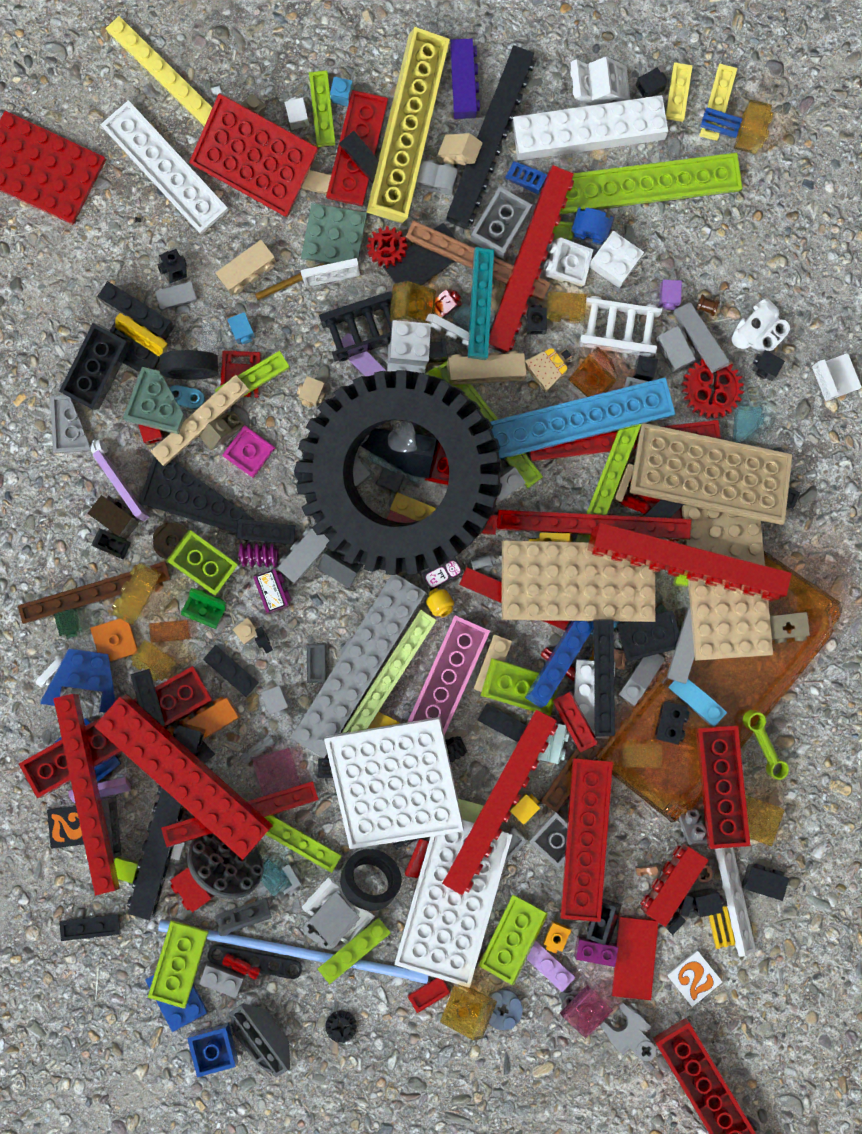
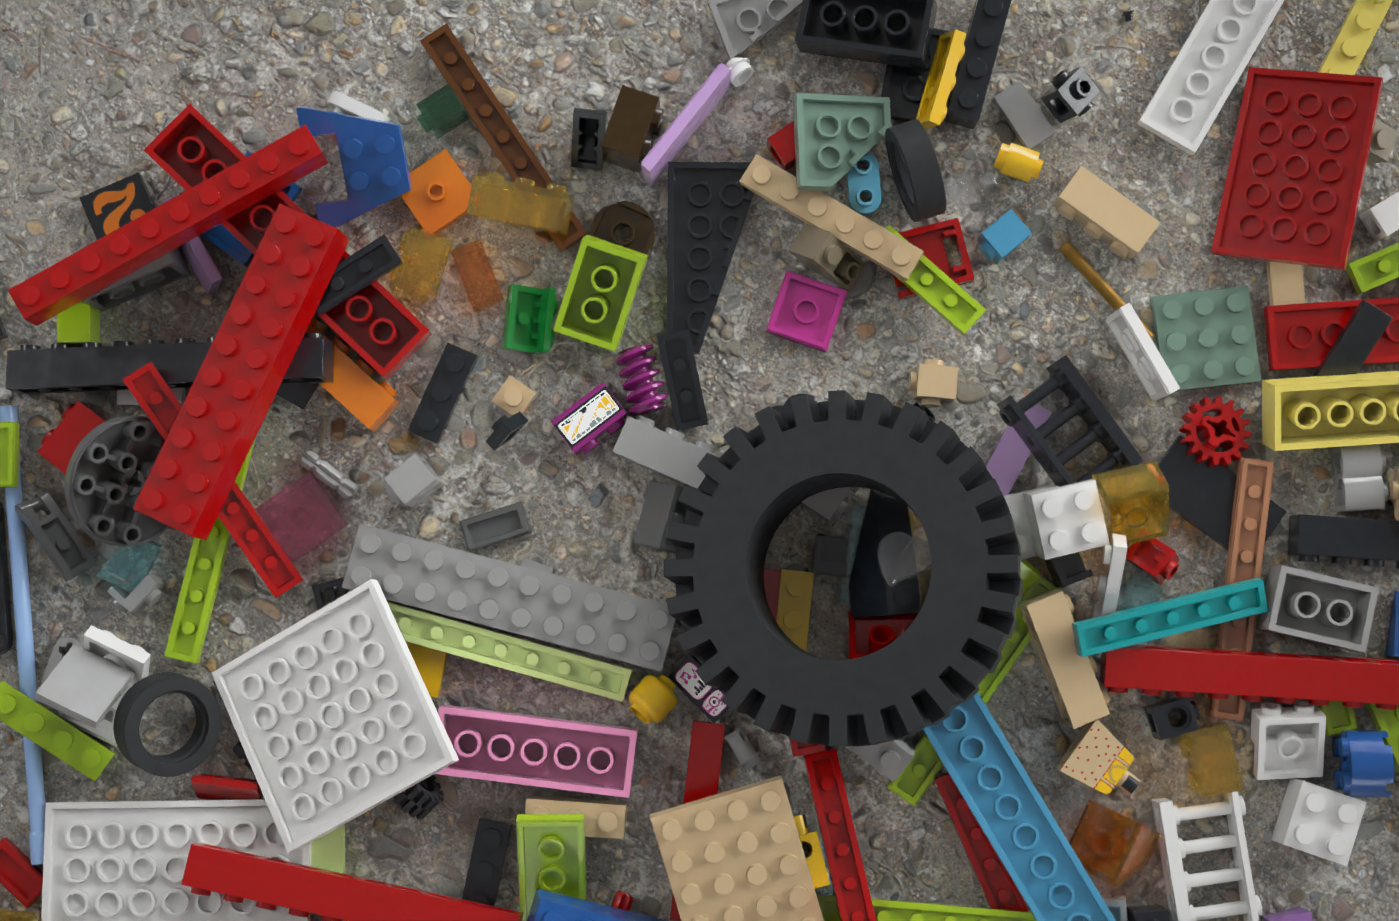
camera: 70 degrees right, 0 degrees up
(201, 307) = (1018, 162): none -> yellow brick

